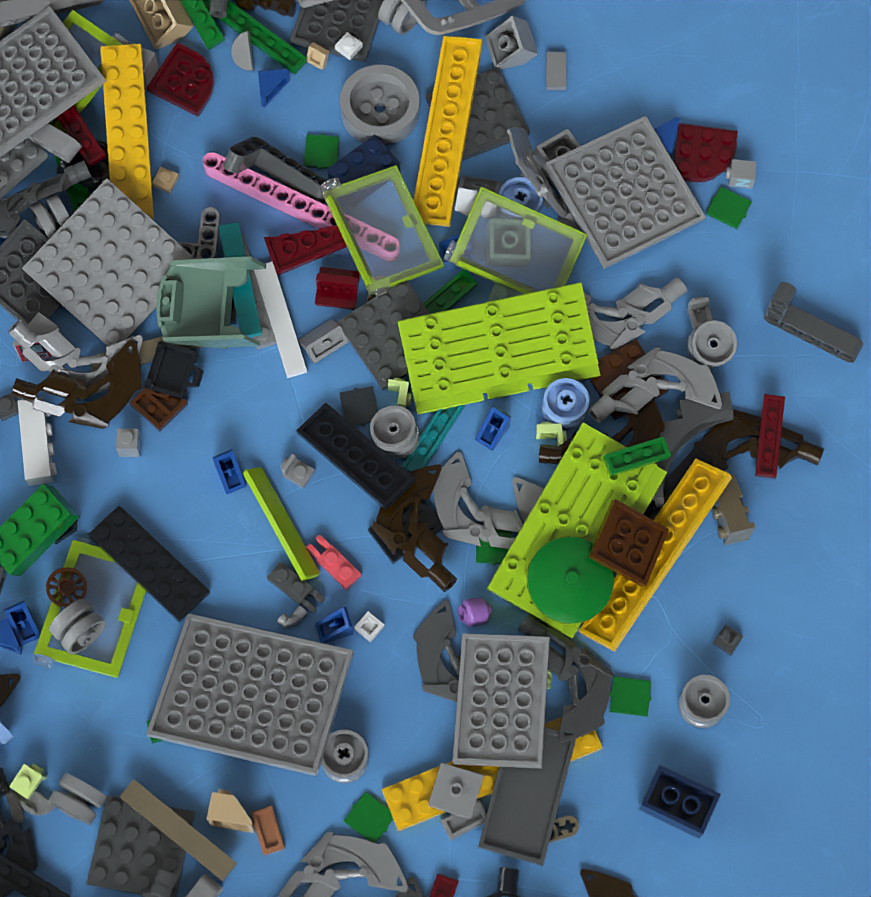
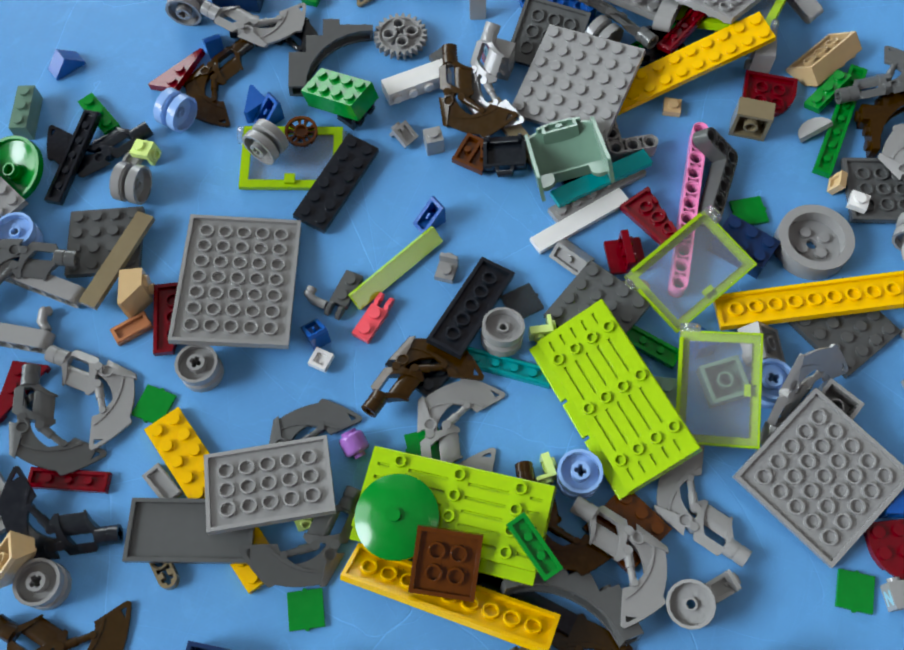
camera: 80 degrees right, 5 degrees down
(104, 474) = (403, 133): none -> light grey bracket
(216, 106) = (752, 118): none -> dark tan brick
(263, 783) = (163, 308): none -> dark red wing
(271, 83) = (792, 155): blue slope -> none
(455, 791) = (181, 467): light grey plate -> none
(493, 428) = (534, 416): blue slope -> none

